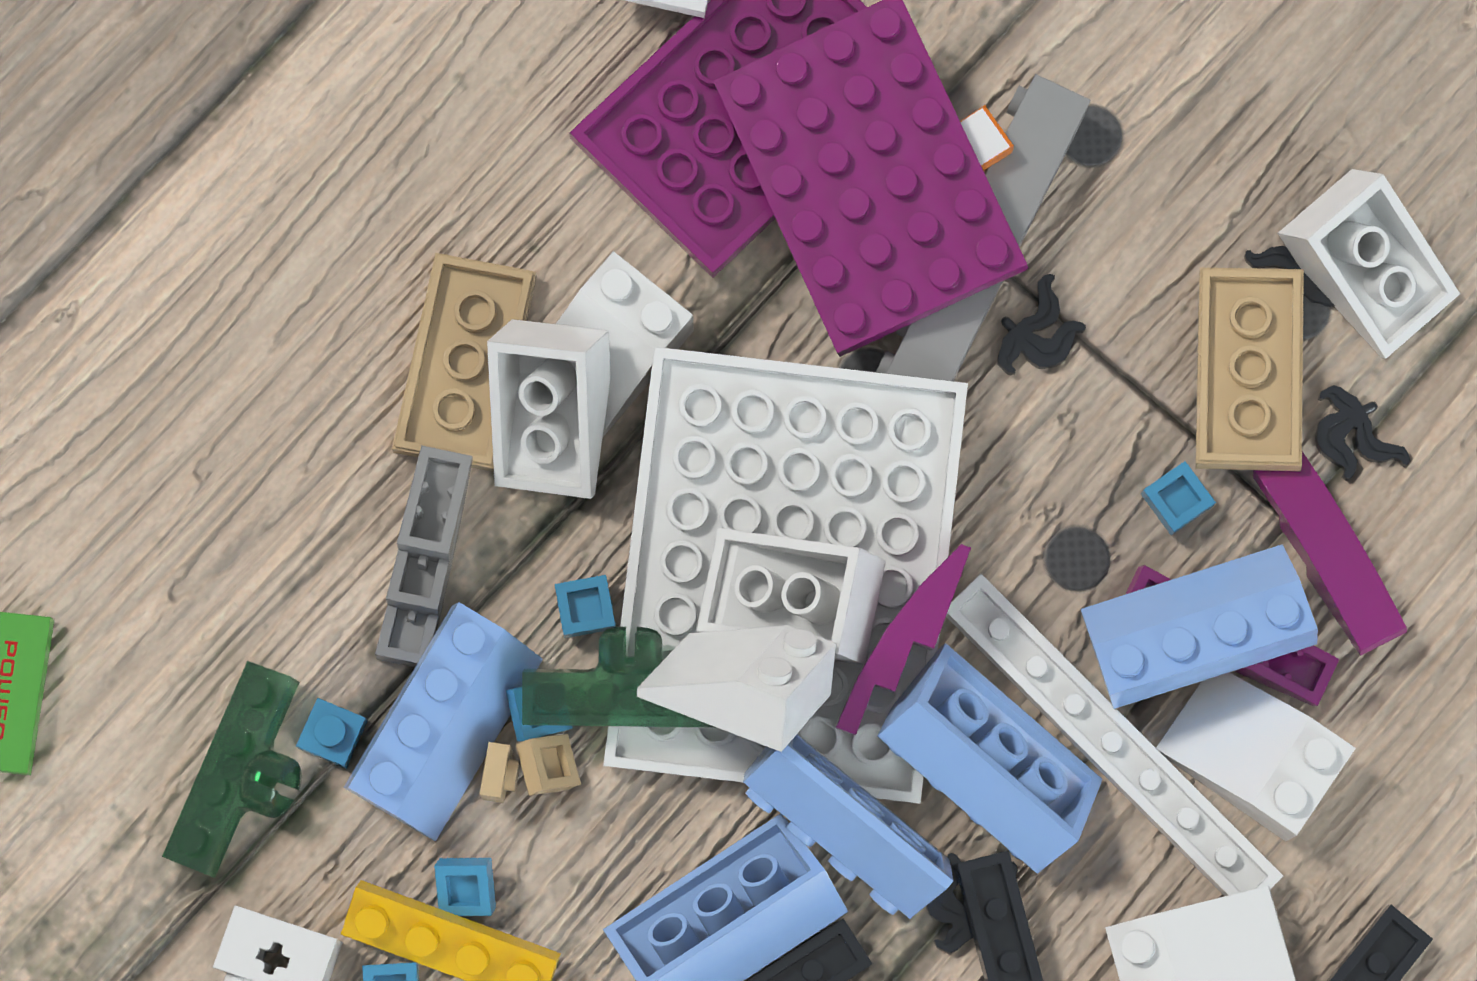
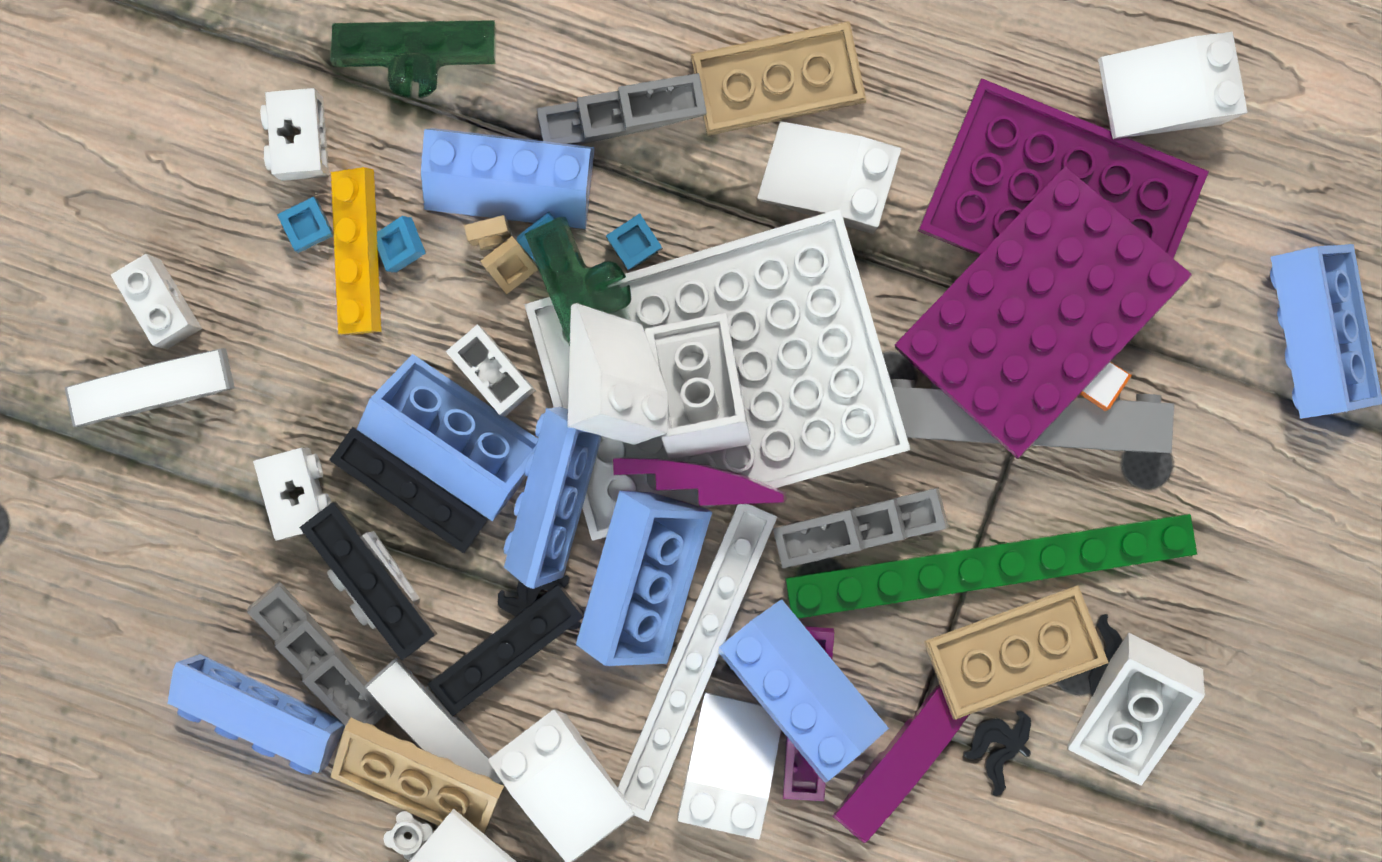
camera: 75 degrees right, 10 degrees up
(331, 733) = (469, 103): dark azure plate -> none
(548, 406) = (767, 150): white slope -> none
(667, 836) = (490, 371): none -> white brick
(1033, 486) = (860, 528): none -> light grey slope
(1038, 351) = (964, 490): black piece -> none
(1137, 360) = (991, 566): none -> green plate
(1178, 498) = (895, 637): dark azure plate -> none

